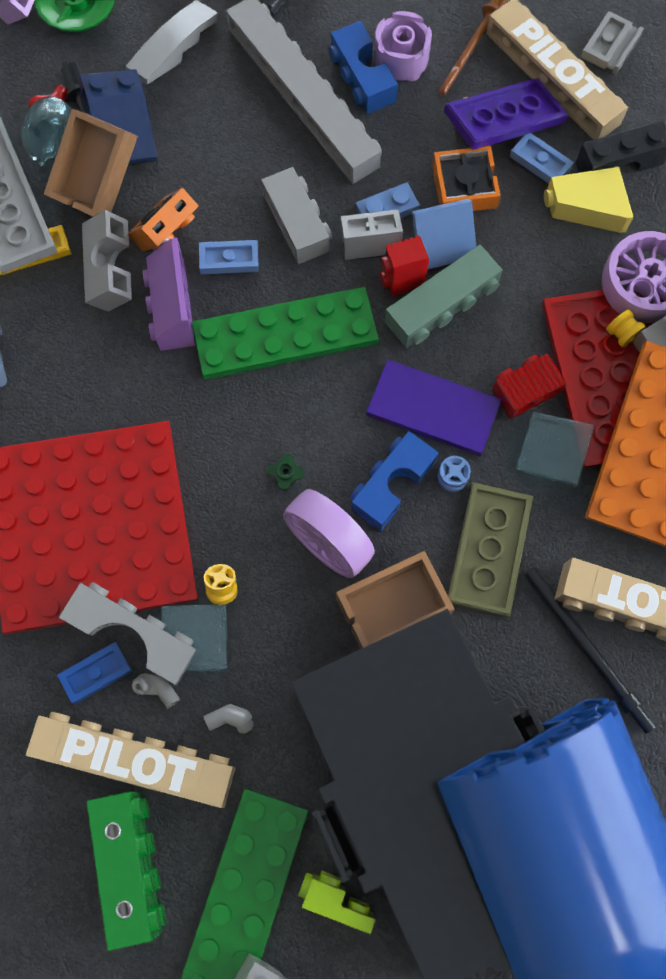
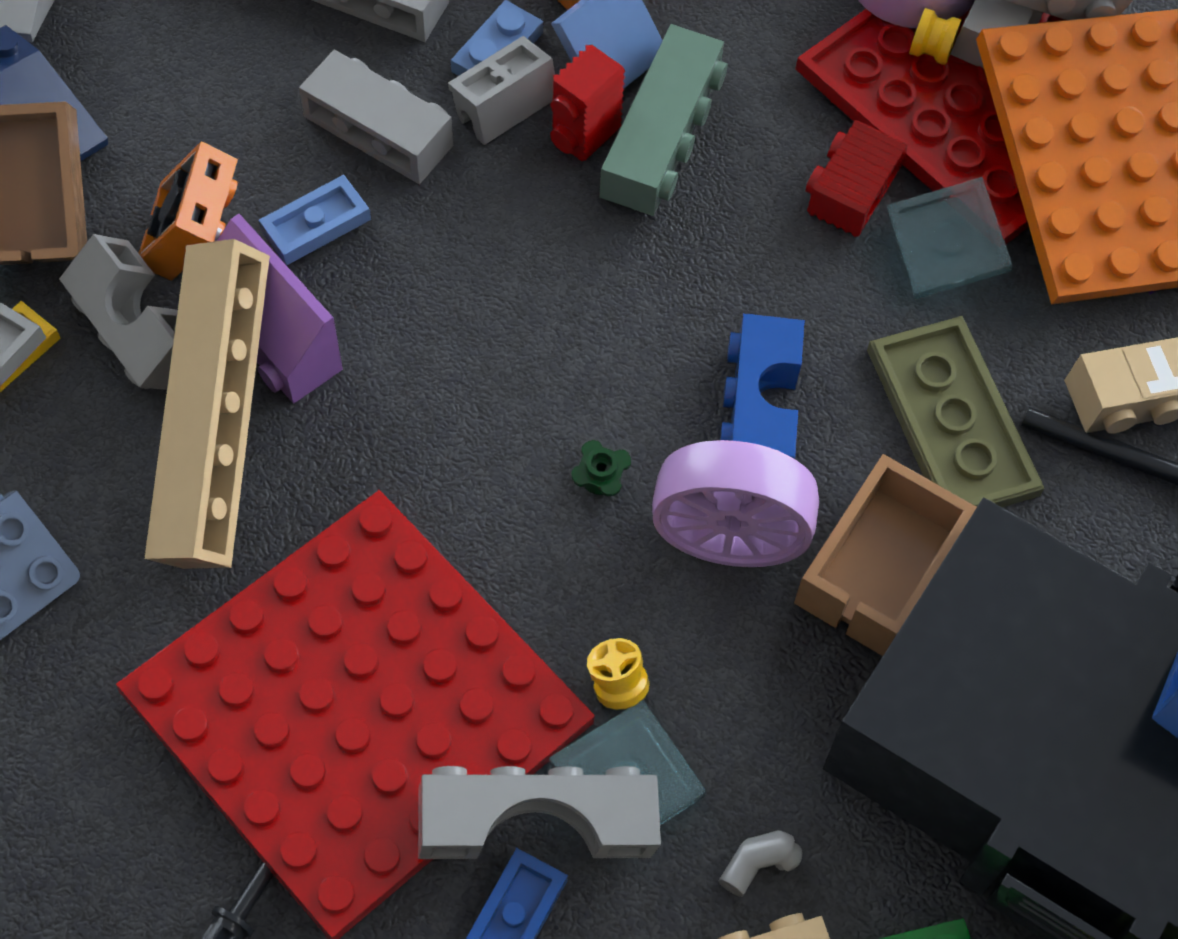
camera: 35 degrees left, 10 degrees down
(104, 331) = (208, 406): none -> tan brick
(155, 685) = (618, 879): light grey arm -> none
(284, 333) = (466, 284): green plate -> none
(433, 407) = (746, 270): dark purple tile -> none
(457, 468) = (839, 331): medium blue wheel -> none

